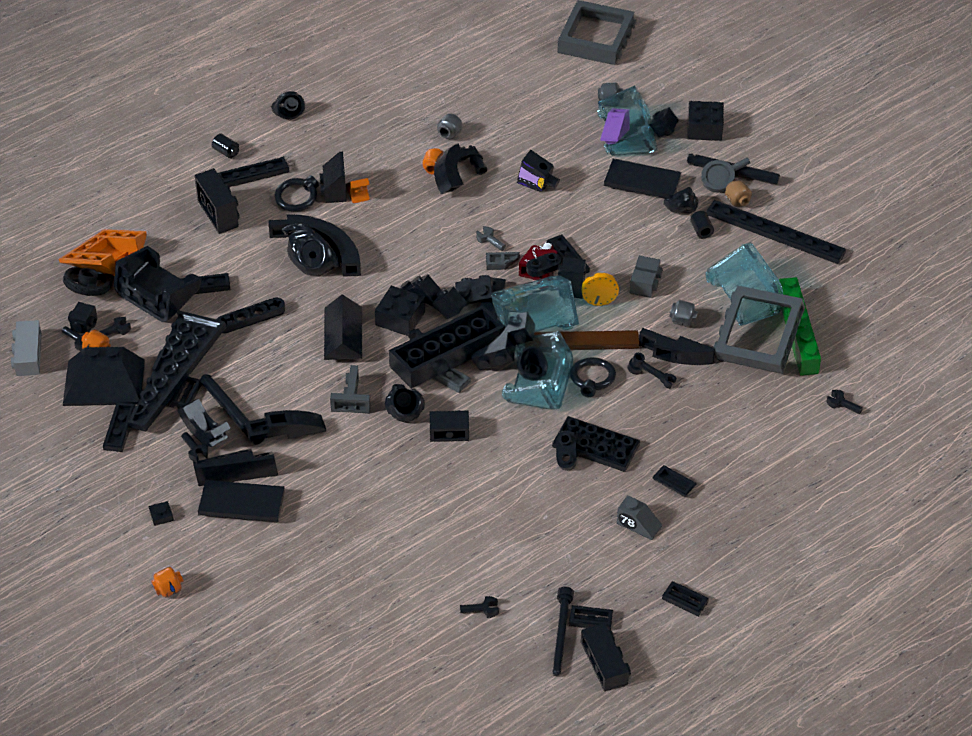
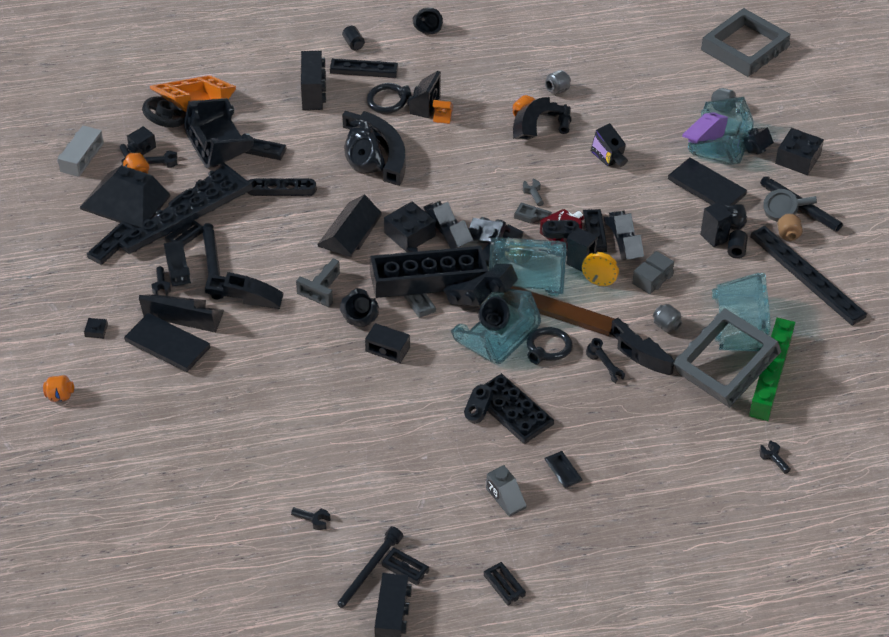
camera: 25 degrees right, 0 degrees up
(594, 242) = (623, 230): none -> arch
(676, 213) = (716, 224): none -> black brick

